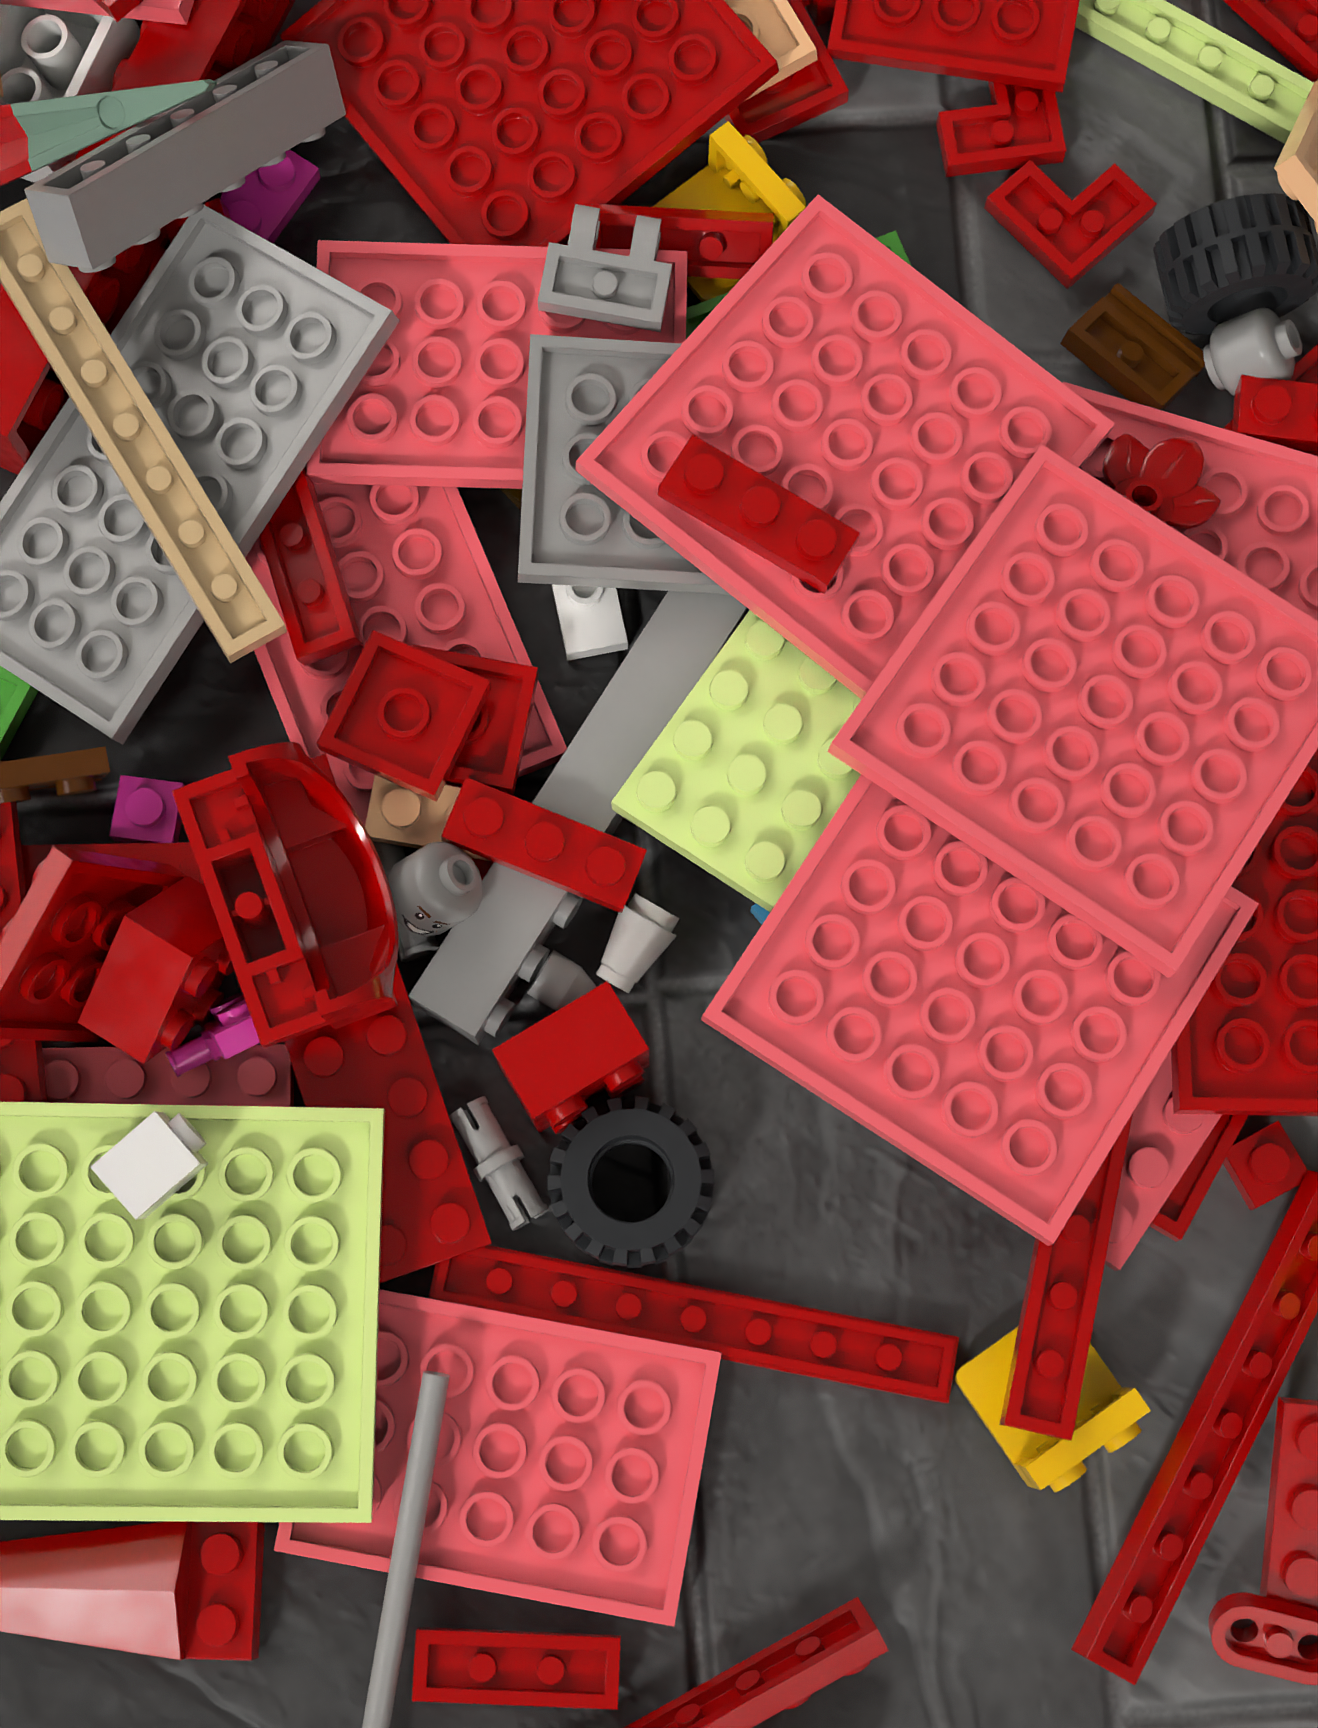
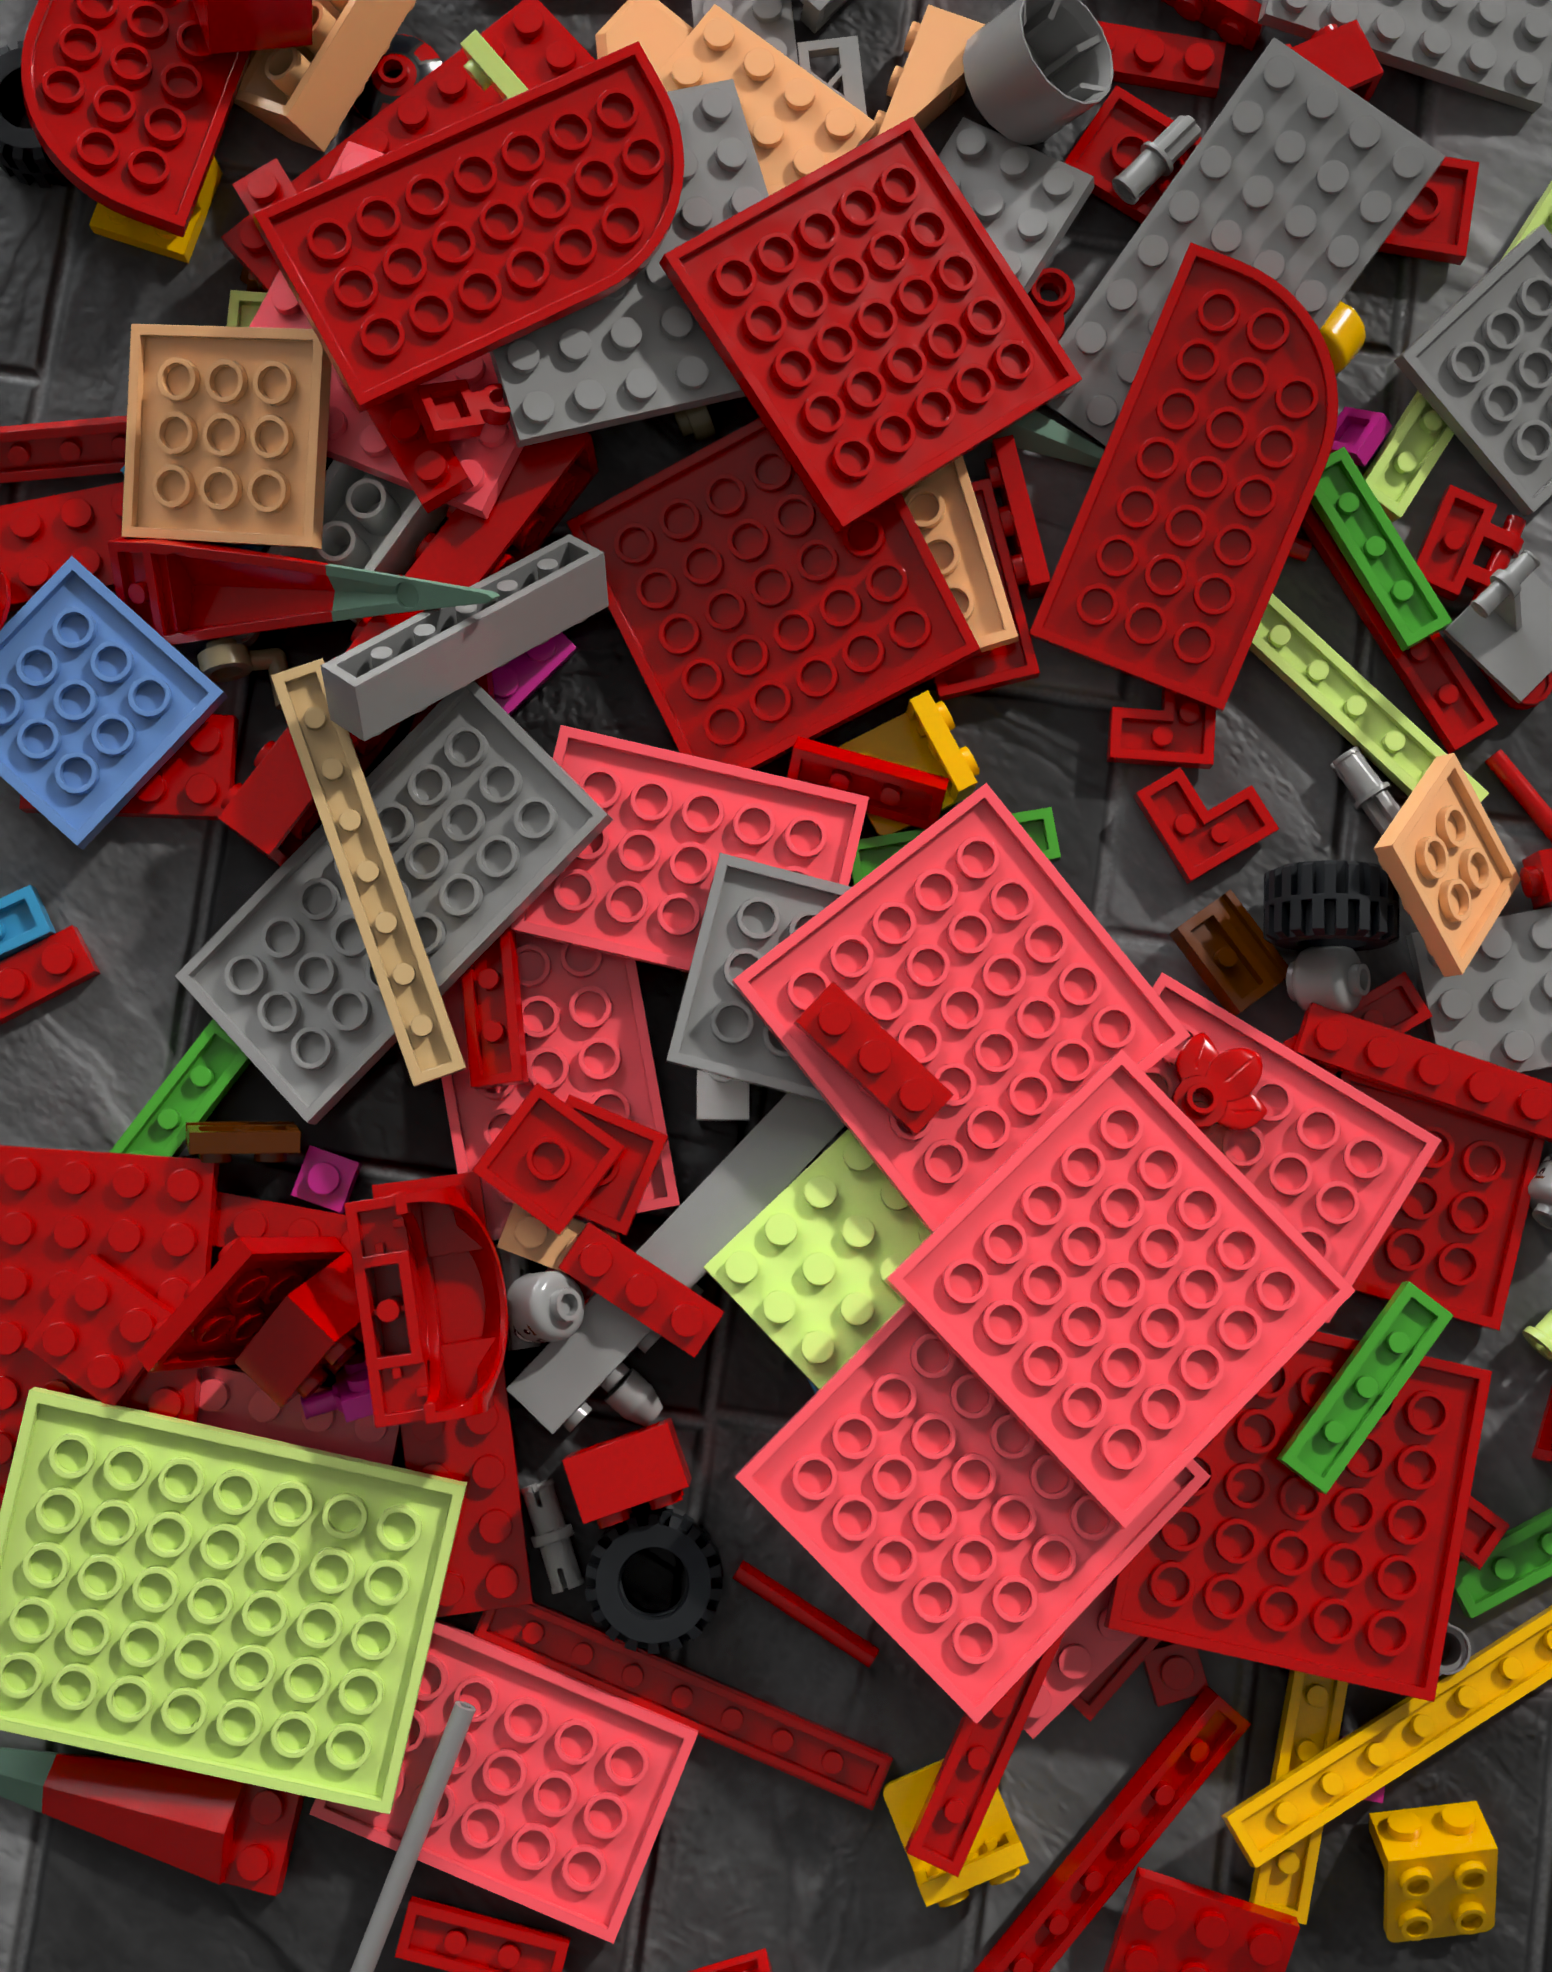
camera: 10 degrees right, 5 degrees up
(152, 1163) = (270, 1499): white brick -> none
(605, 284) = (792, 819): light grey plate -> none
(636, 942) = (702, 1377): white cone -> none
(818, 1191) = (806, 1613): none -> red bar
(1241, 144) = (1366, 788): none -> light grey axle

